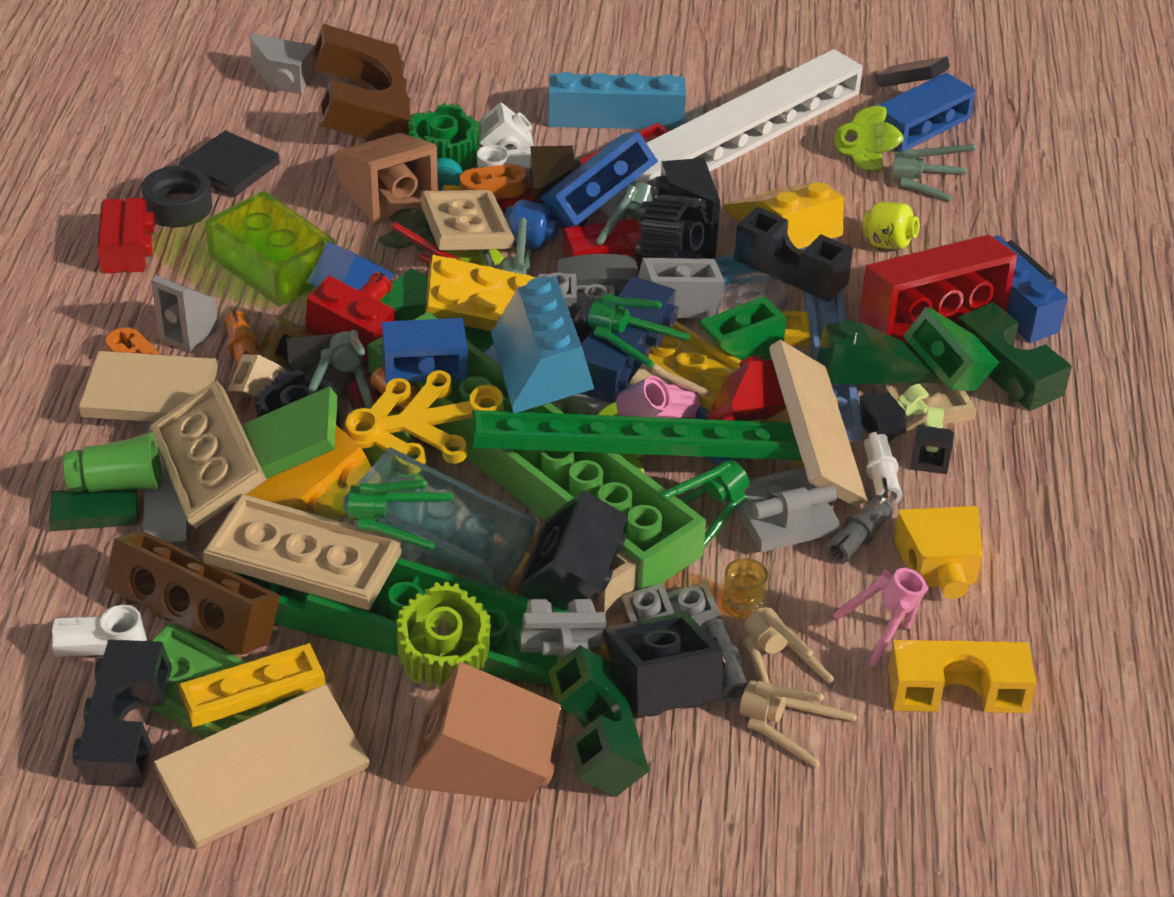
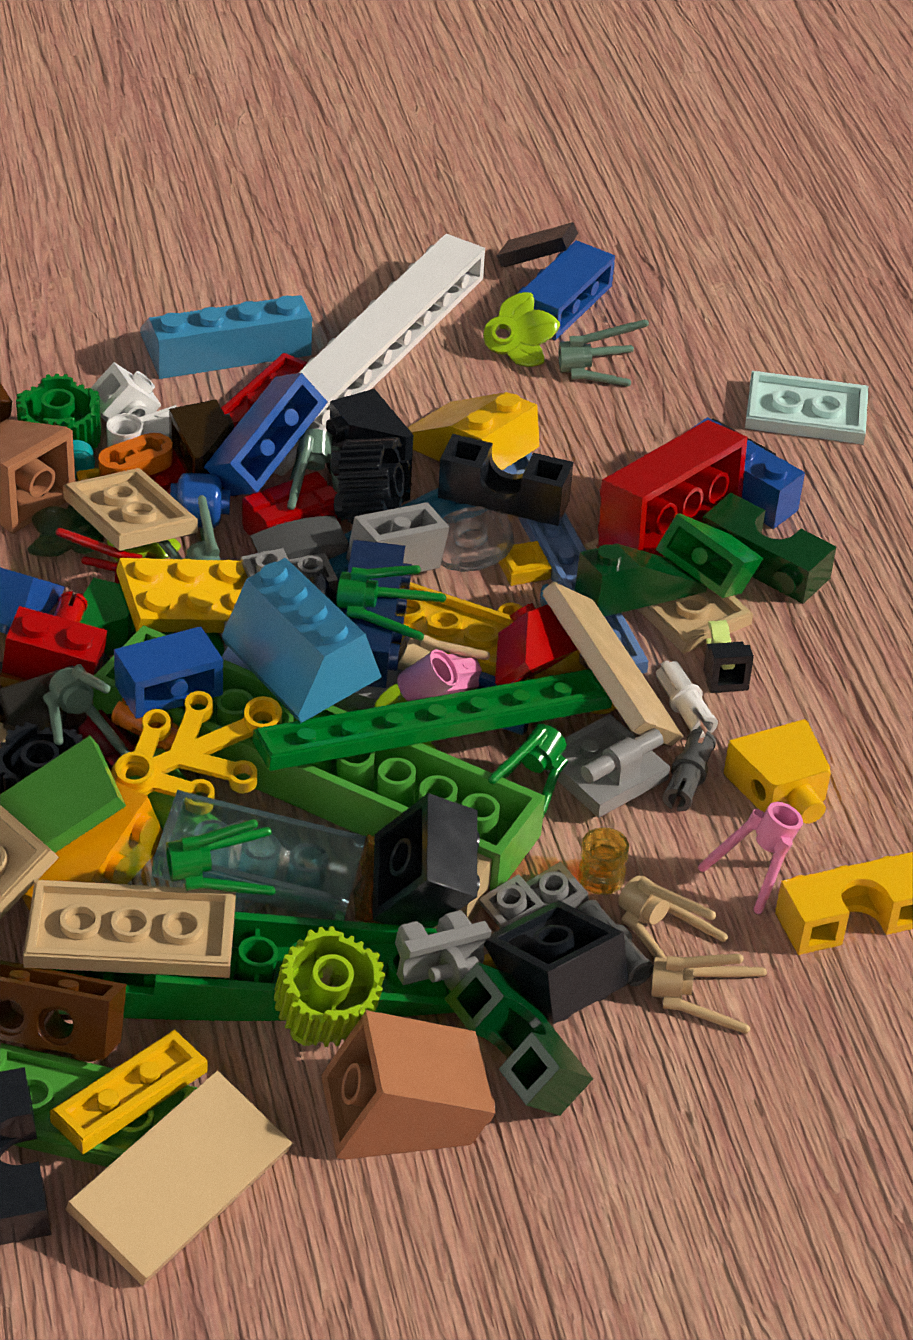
camera: 20 degrees left, 0 degrees up
(747, 328) = (493, 573): green slope -> none
(888, 416) = (670, 639): black piece -> none
(890, 225) = (585, 426): neon yellow head -> none
(1104, 246) = (807, 407): none -> light aqua tile

